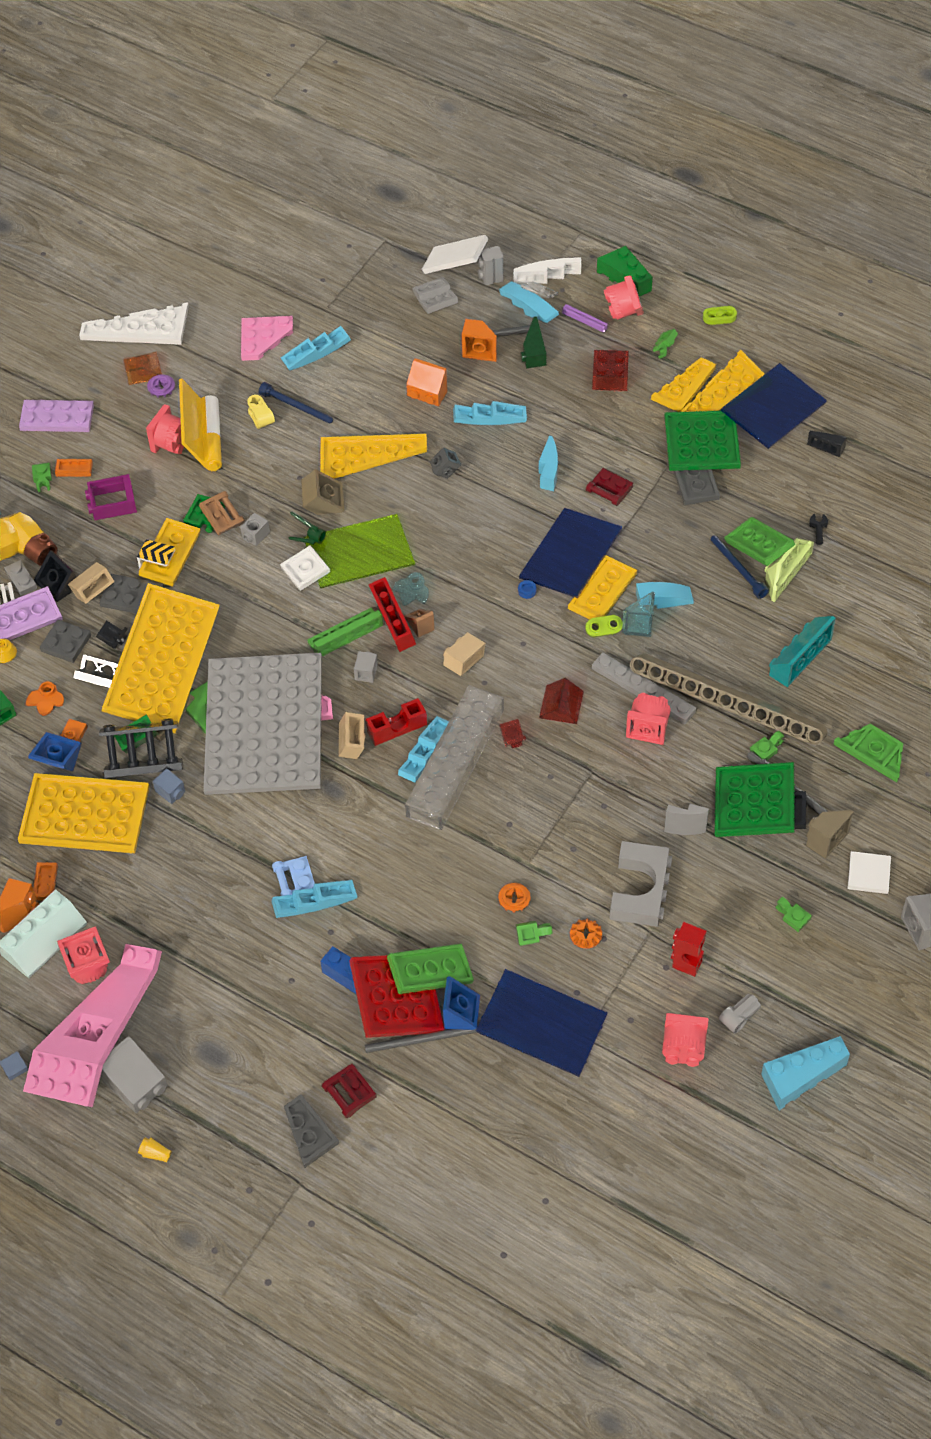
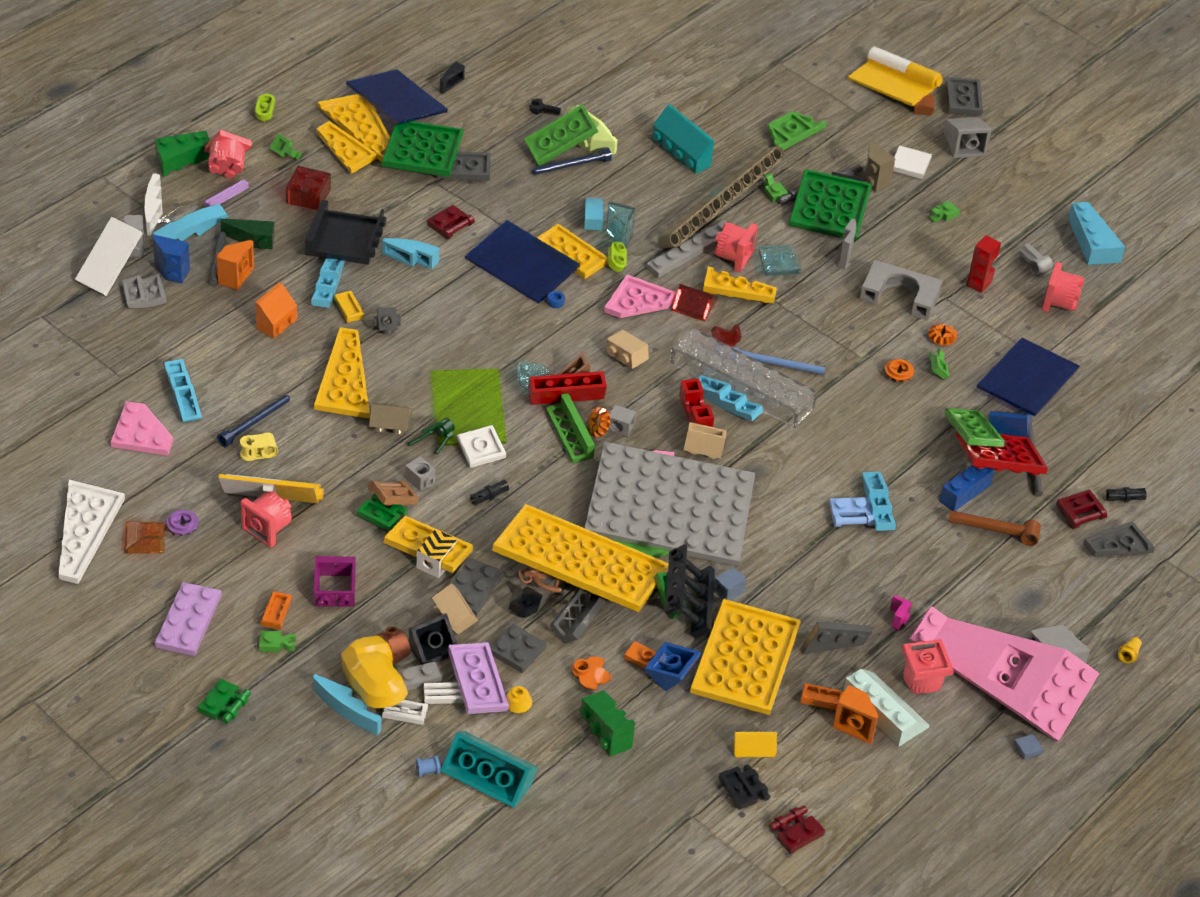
camera: 85 degrees left, 10 degrees down
(115, 881) = (834, 636): none -> dark grey wing
(161, 935) = (902, 608): none -> dark pink bracket
(248, 585) = (489, 492): none -> black pin
(301, 1040) = (1028, 531): none -> dark orange piece
(355, 647) = (604, 420): none -> orange gear
(383, 1134) = (1126, 494): none -> black pin
(463, 437) = (349, 306): none -> yellow tile
(469, 297) = (171, 258): none -> blue slope
(494, 748) = (785, 363): none -> medium blue bar
(547, 652) = (638, 297): none -> bright pink plate
(555, 408) = (344, 235): none -> black panel
(594, 733) = (738, 287): none -> yellow wing
(649, 766) = (779, 260): none -> clear light blue plate

